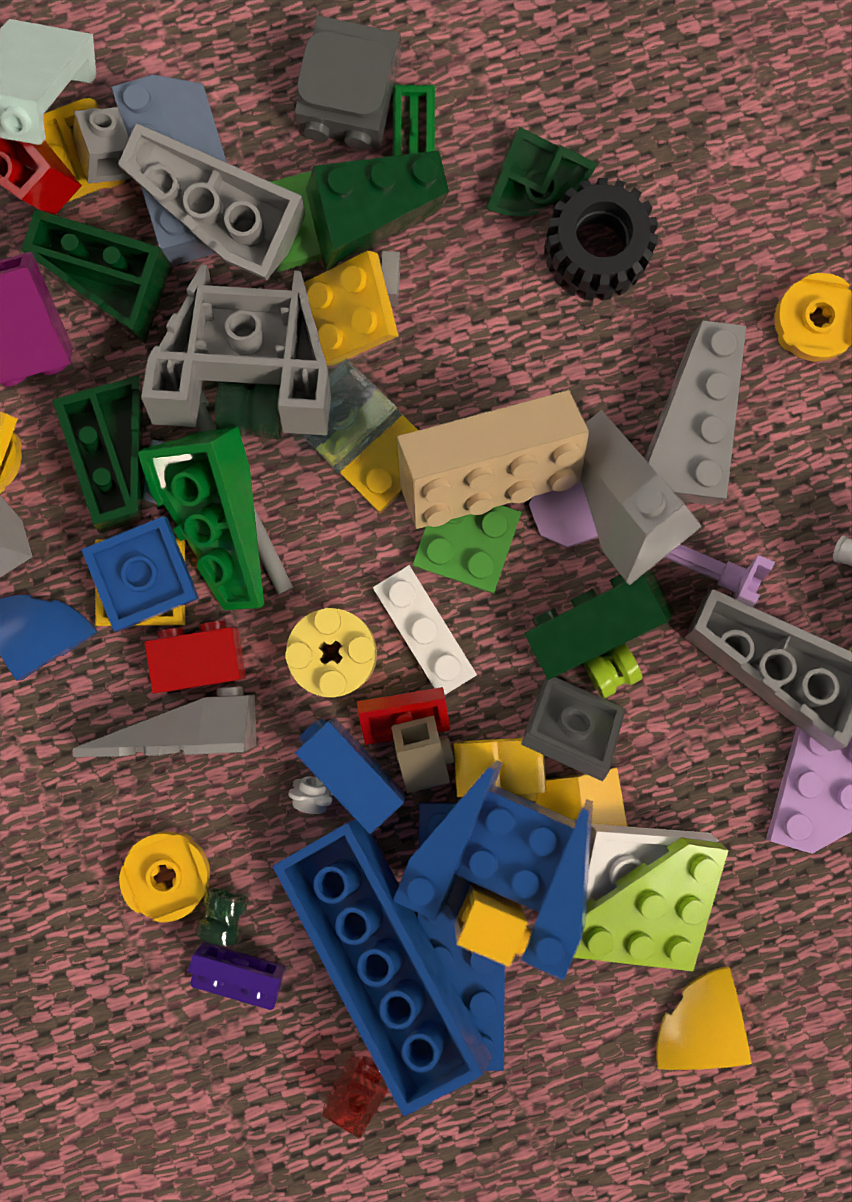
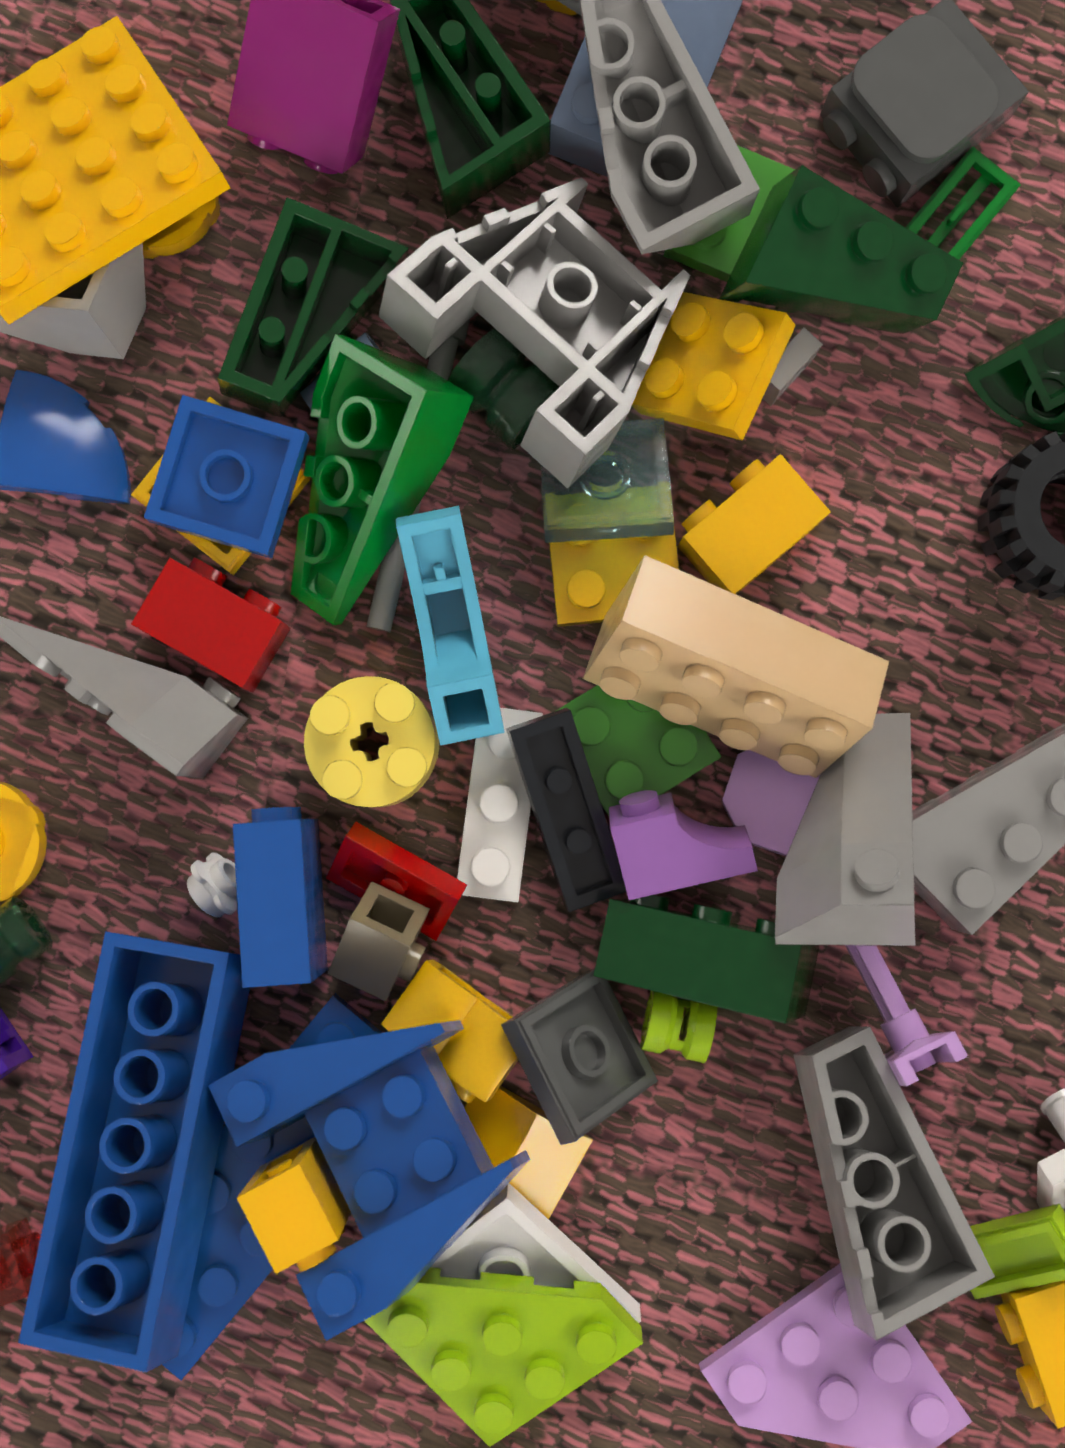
camera: 40 degrees right, 0 degrees up
(323, 557) = (450, 626): none -> medium azure arch
(440, 377) = (753, 526): none -> yellow brick
(463, 604) = (567, 809): none -> black plate
(536, 581) = (670, 851): none -> medium lavender arch

